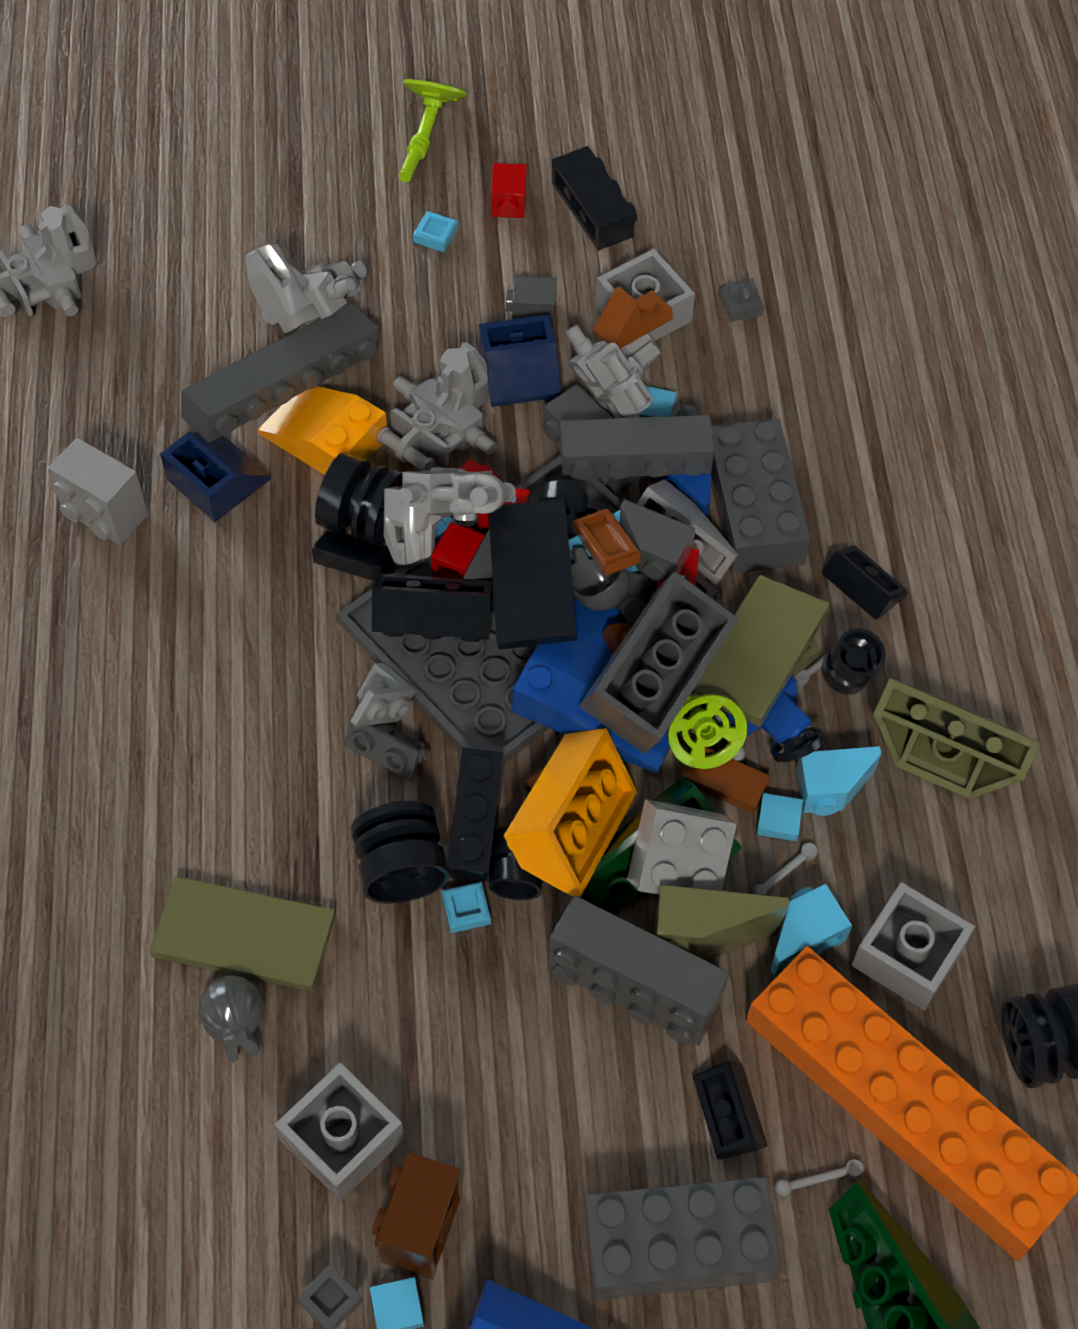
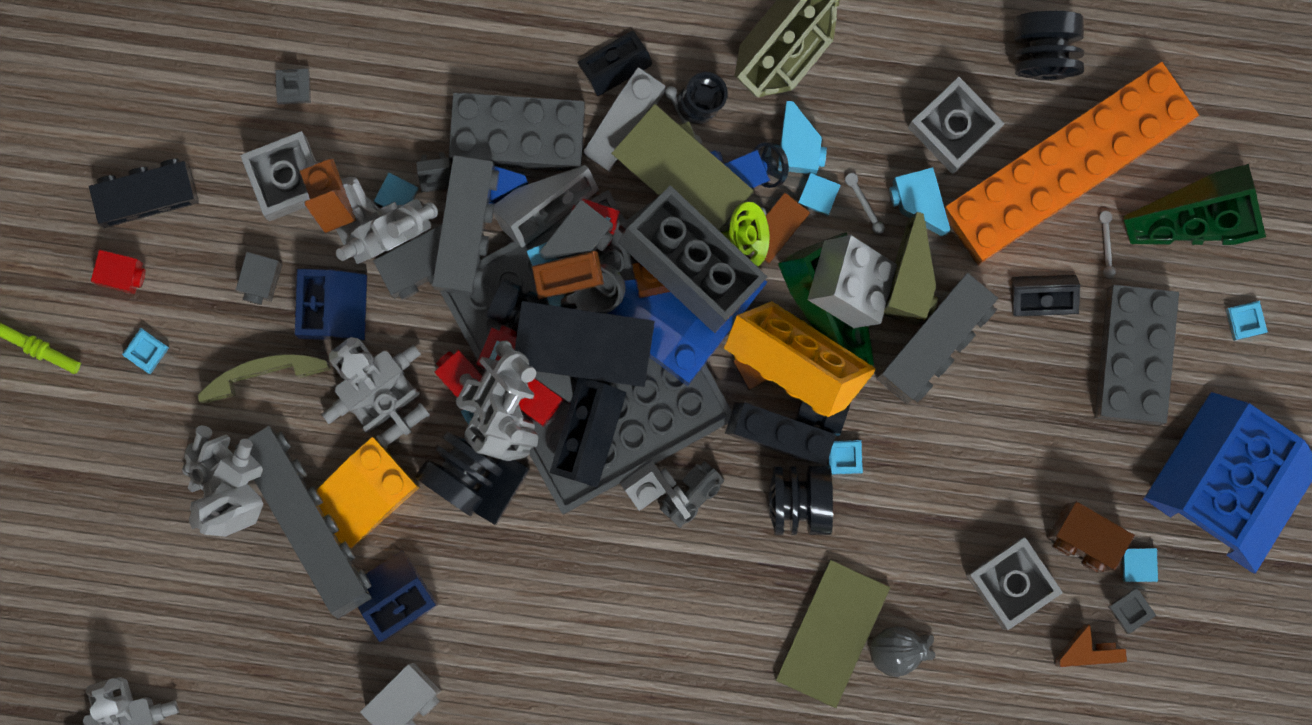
camera: 80 degrees left, 25 degrees up
(264, 1244) = (1080, 651): none -> dark orange slope
(418, 294) = (223, 386): none -> olive slope
(841, 592) = (627, 110): none -> light grey slope

